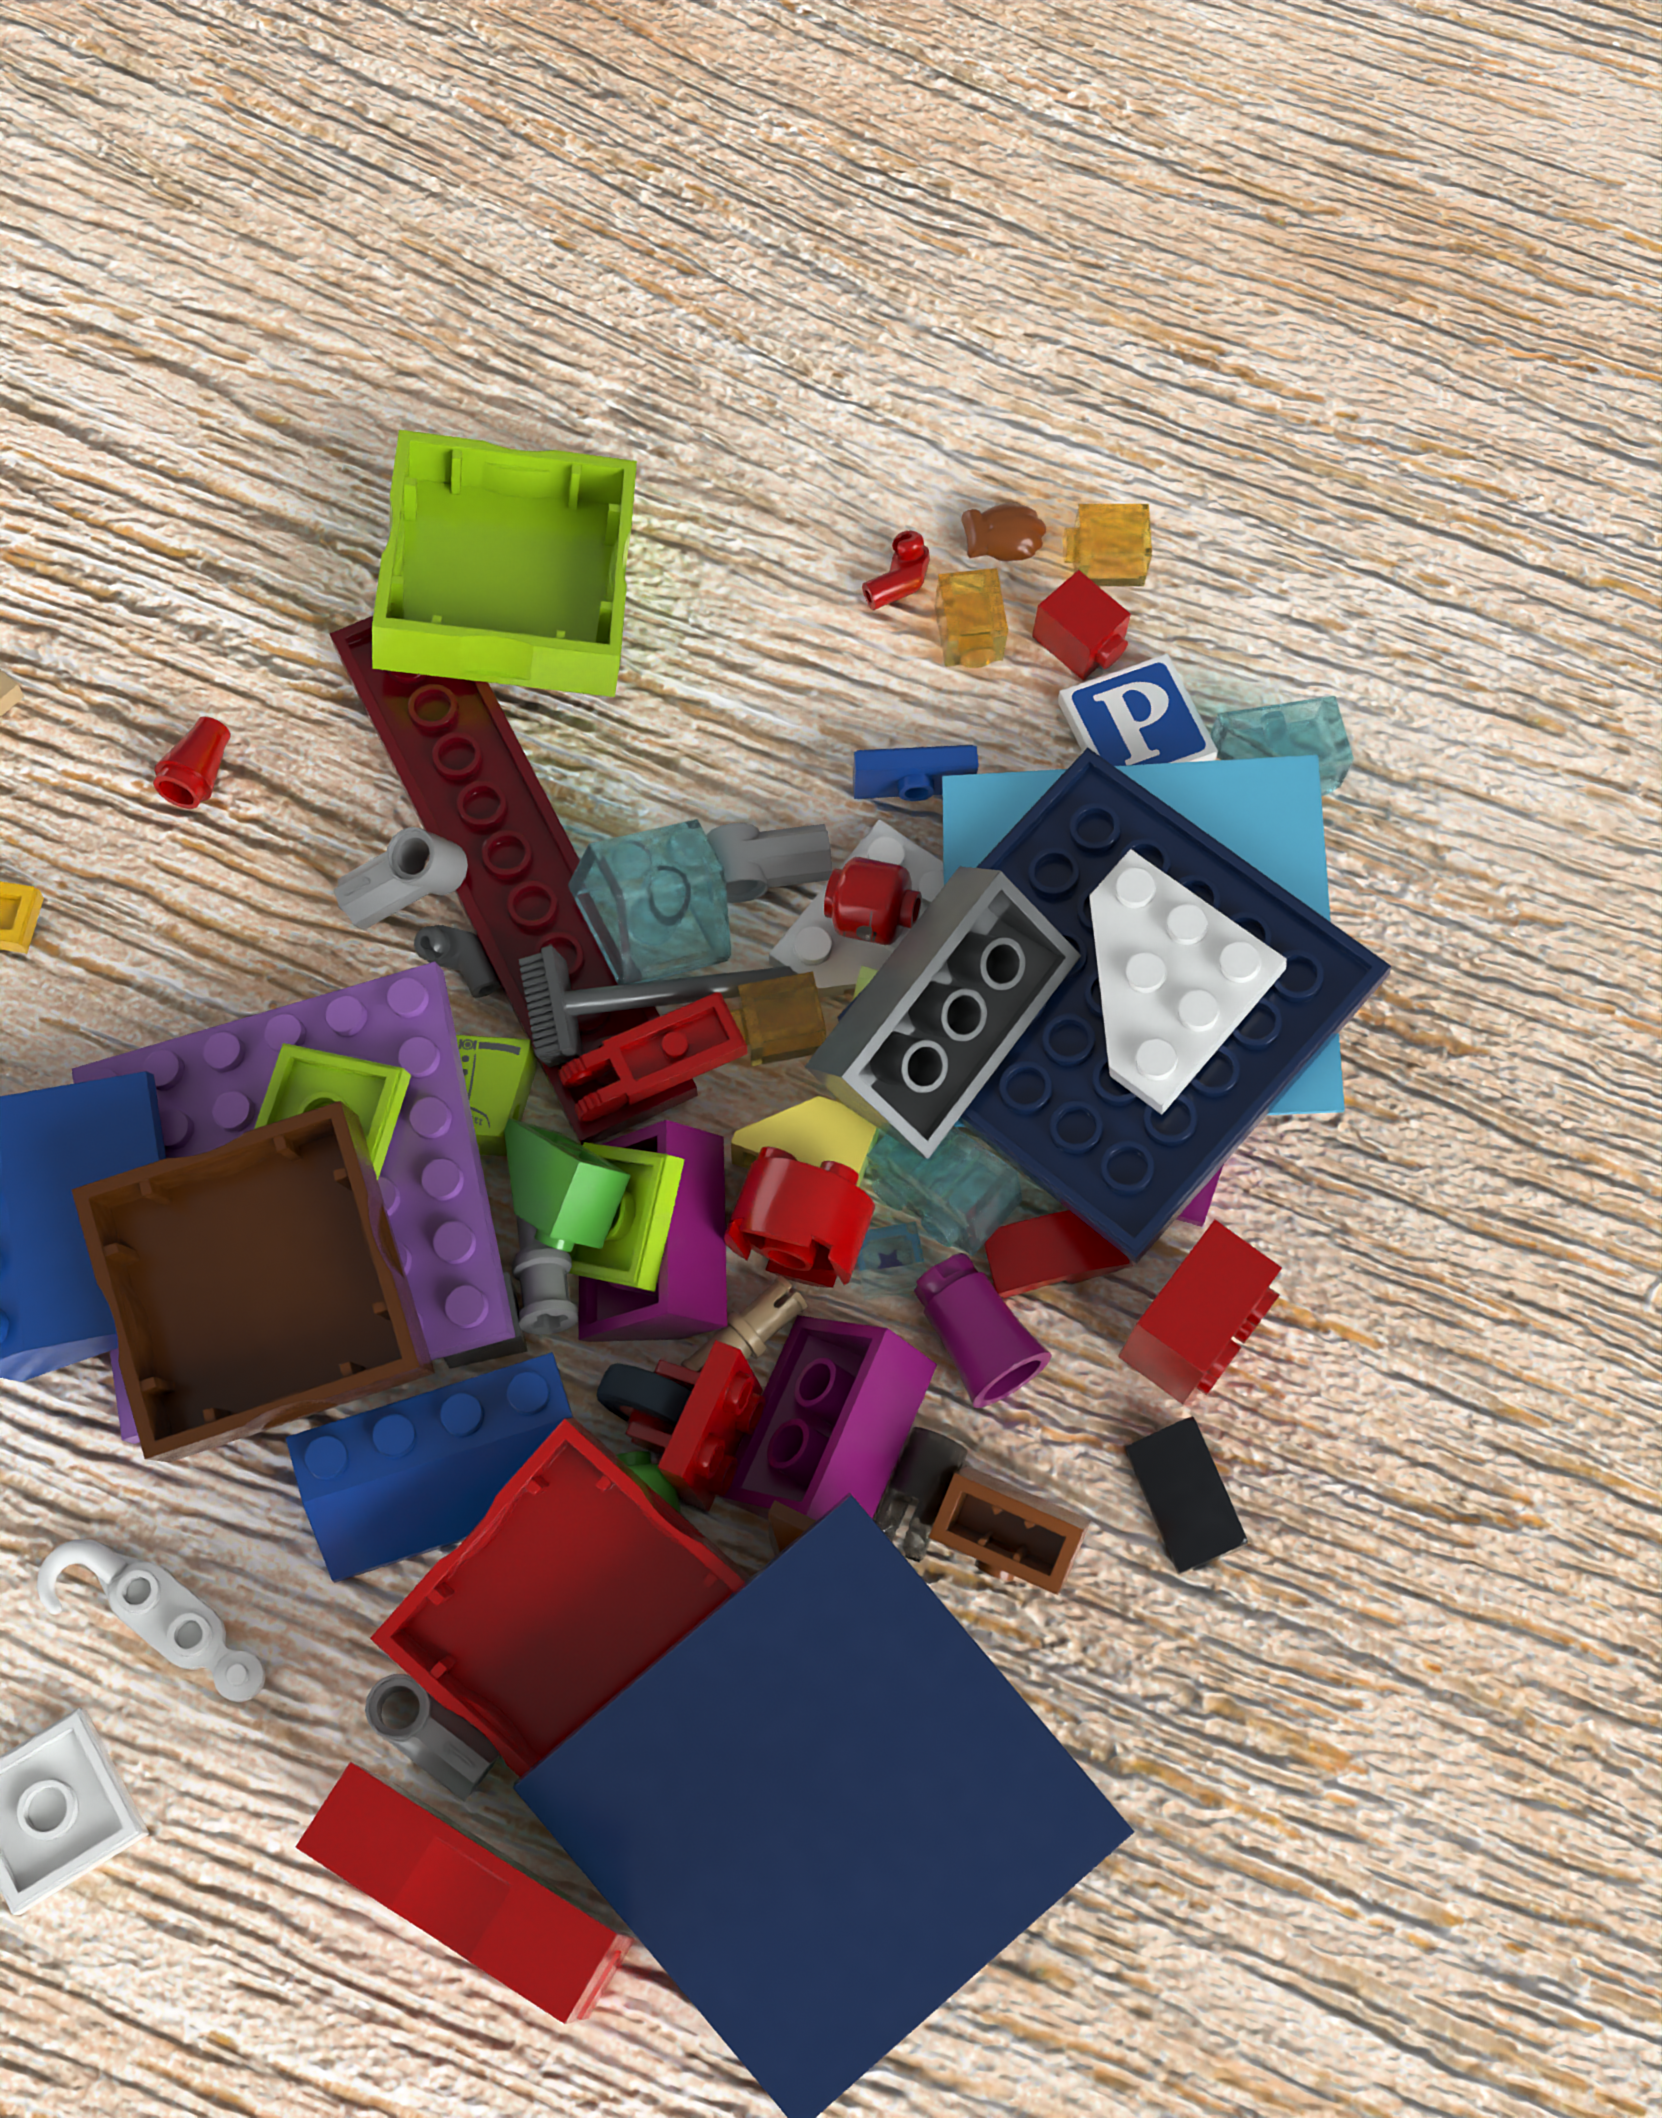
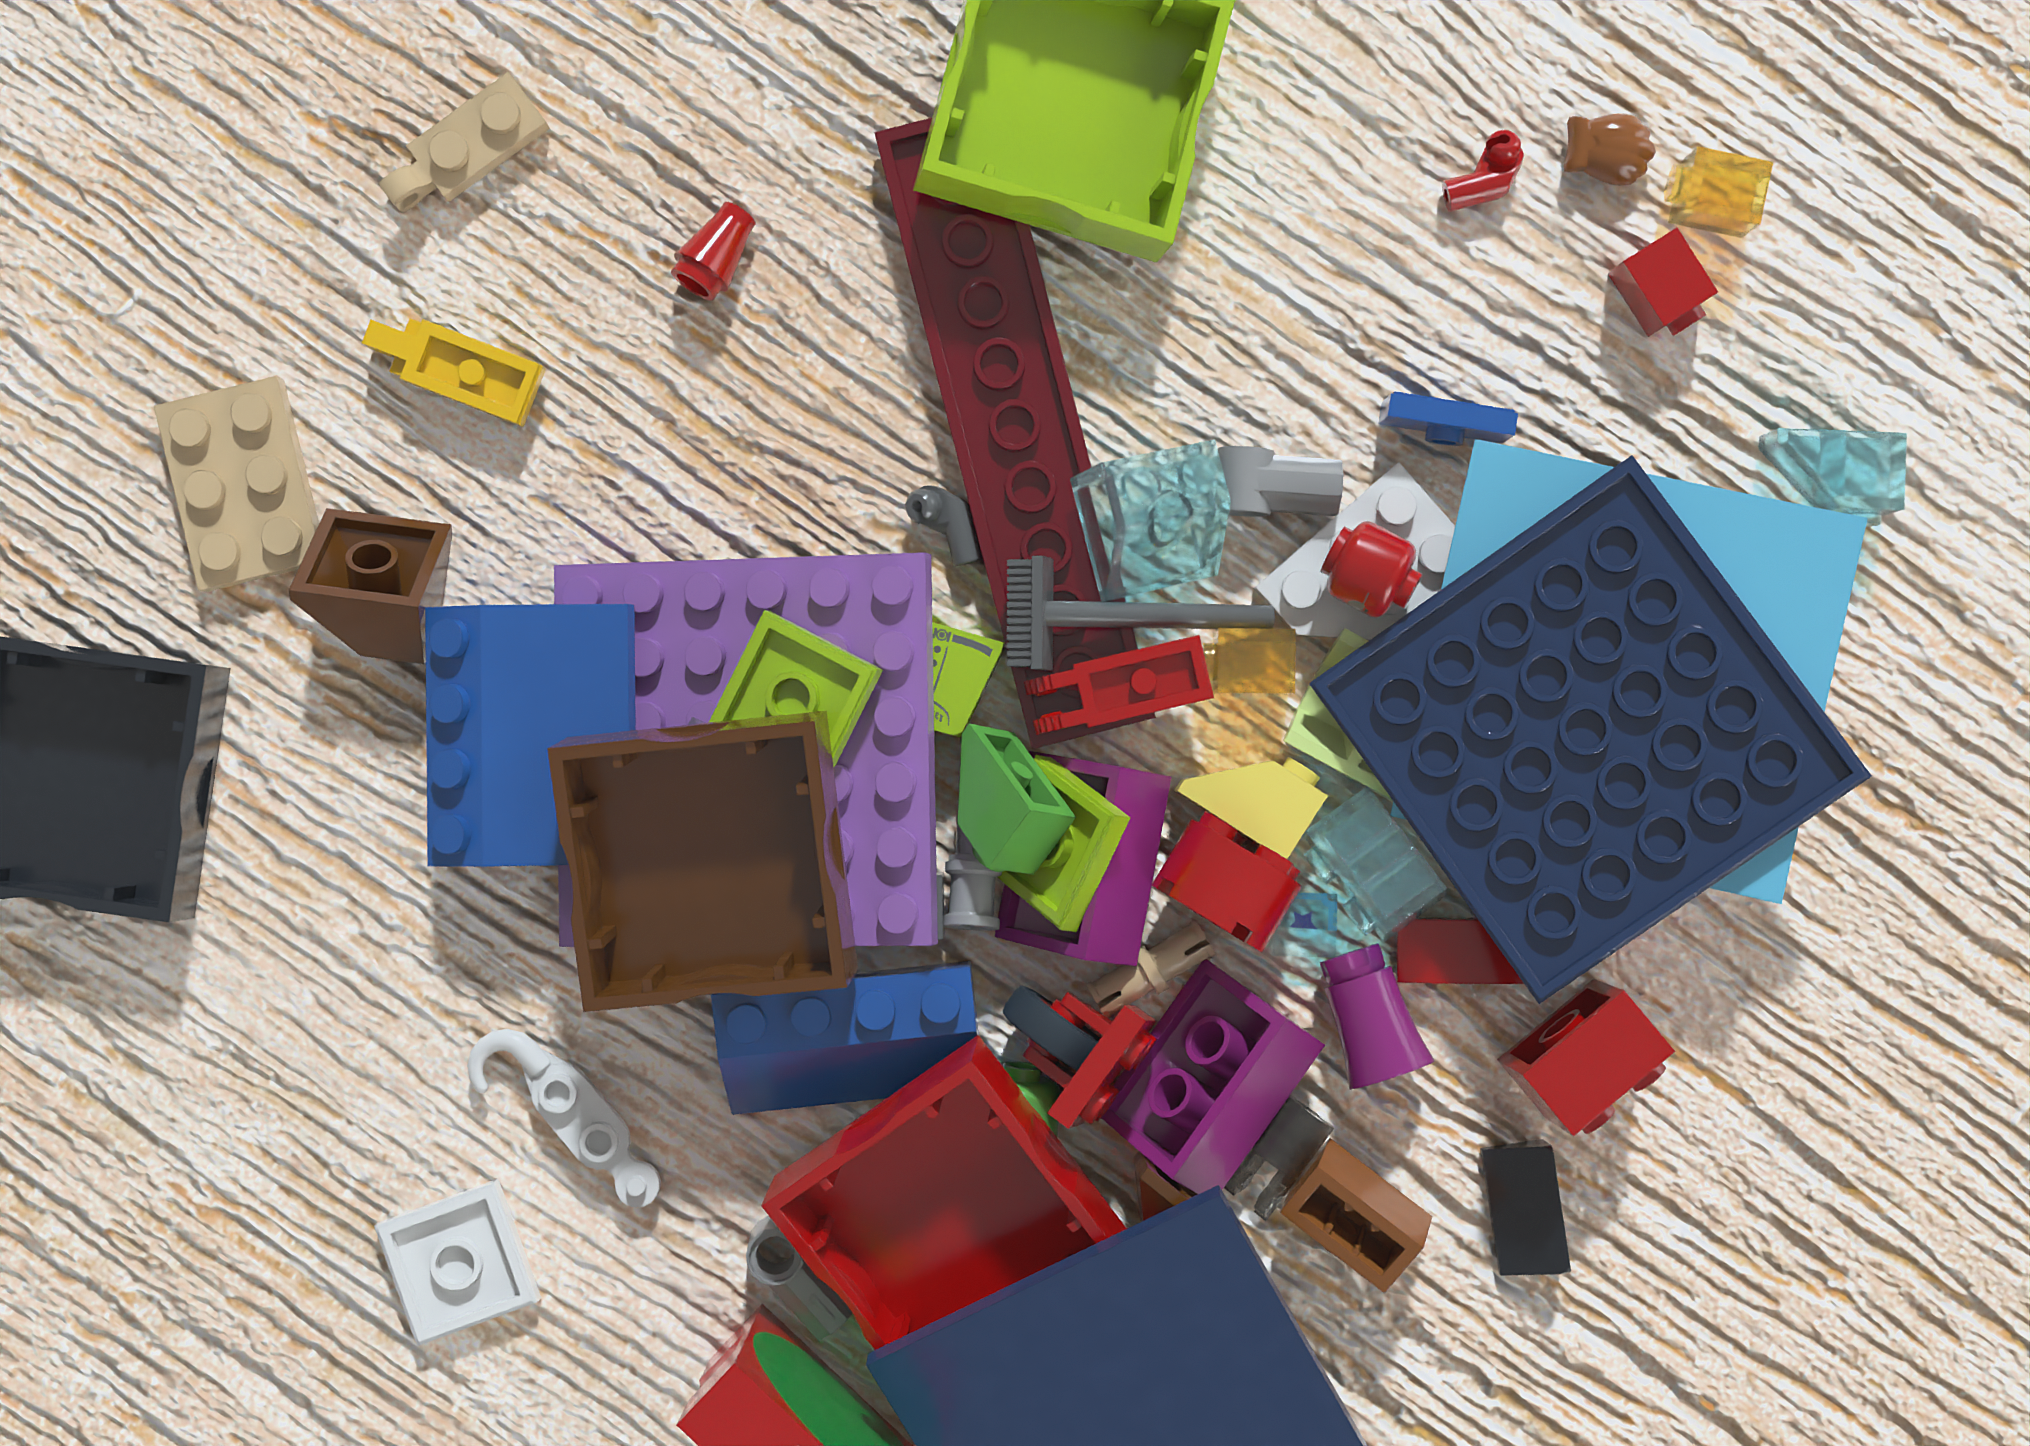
camera: 15 degrees right, 20 degrees up
(400, 876) = (903, 434): light grey piece -> none
(944, 1009) = (1417, 714): dark grey slope -> none
(971, 618) = (1548, 251): clear yellow brick -> none
(1138, 716) = (1691, 405): tile -> none
(1170, 978) = (1647, 734): white plate -> none

